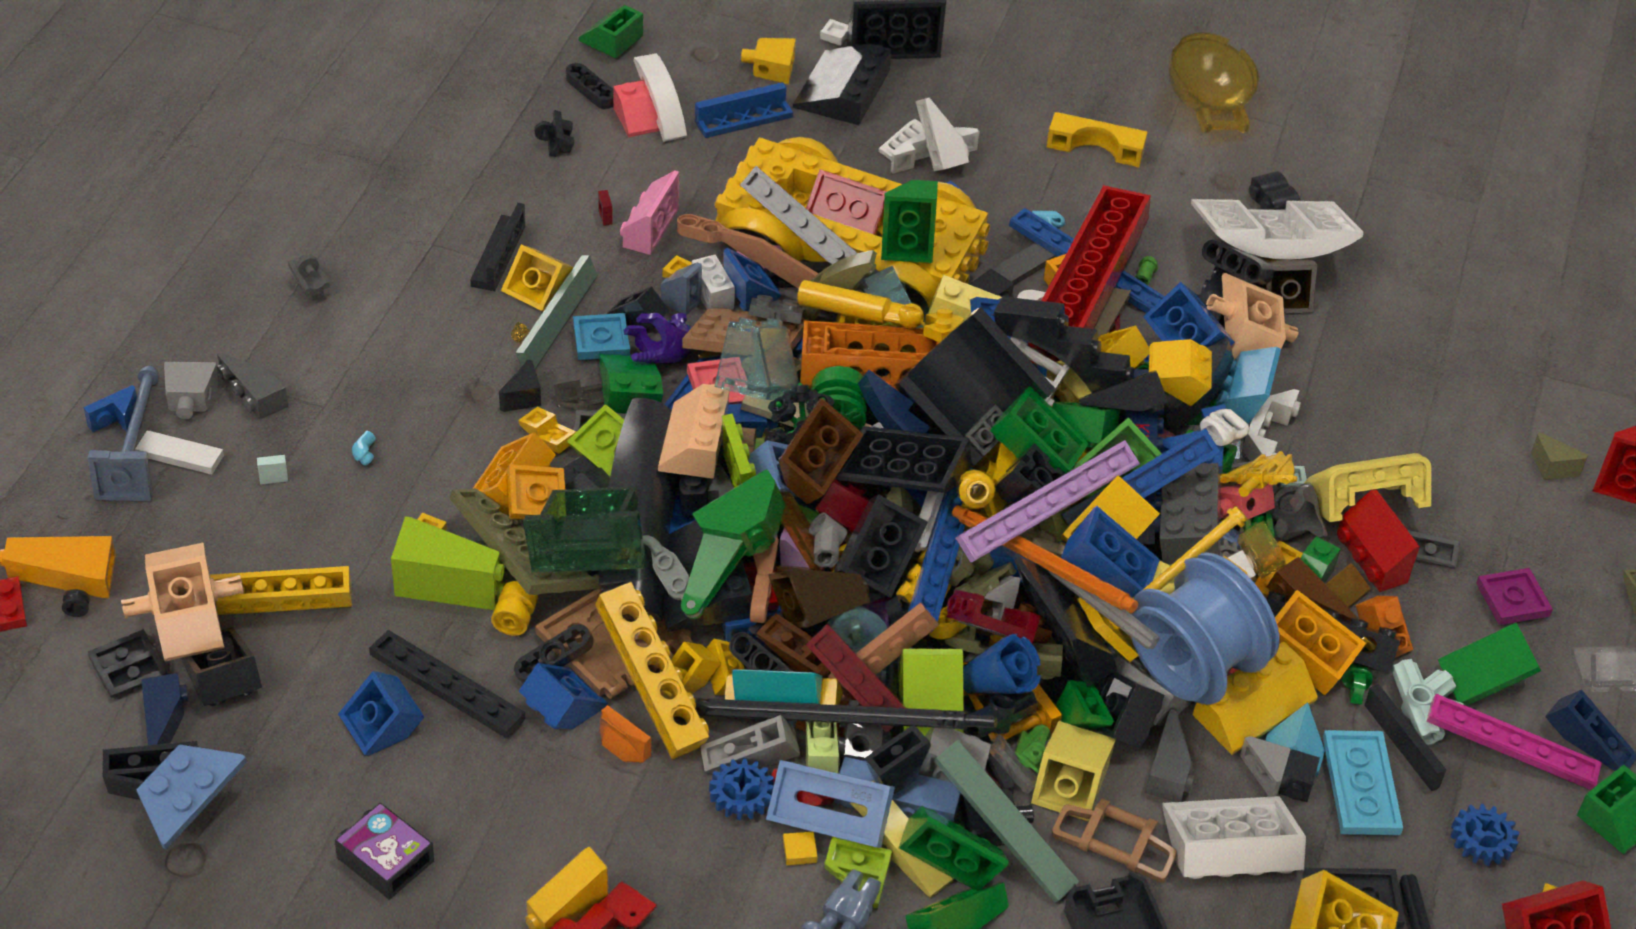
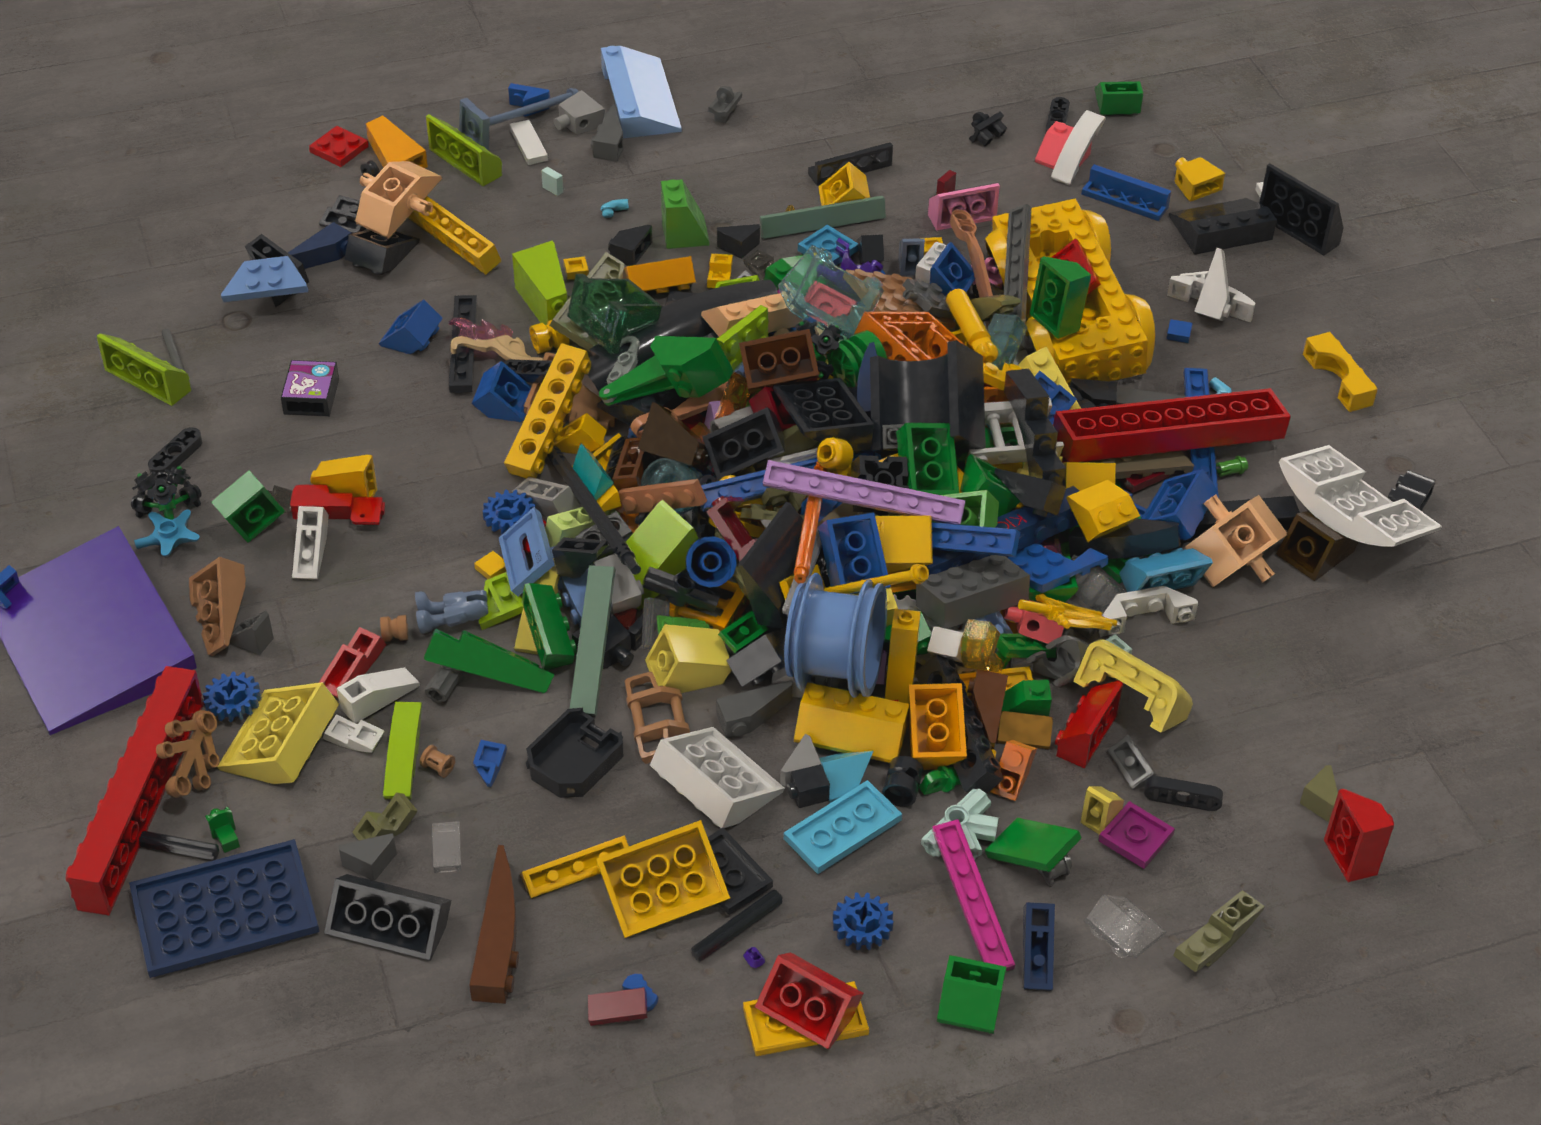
camera: 55 degrees right, 0 degrees up
(143, 511) = (462, 152): none -> lime slope
(206, 321) = (639, 92): none -> light blue slope
(442, 470) = (631, 244): none -> black slope
(452, 408) = (681, 217): none -> bright green slope
(469, 659) = (489, 338): none -> piece
(531, 487) = (650, 280): light orange plate -> none
(623, 737) = (497, 431): orange slope -> none
(852, 671) = (624, 491): dark red plate -> none
(1213, 80) = (1480, 388): clear yellow windscreen -> none
(1222, 431) = (1071, 563): white piece -> none
(1247, 262) = (1279, 498): black beam -> none
(1350, 710) = (903, 781): none -> black wheel
(1405, 737) = (911, 831): black tile -> none
(1478, 598) = (1100, 808): none -> light yellow slope
(1491, 538) = (1201, 795): none -> black beam

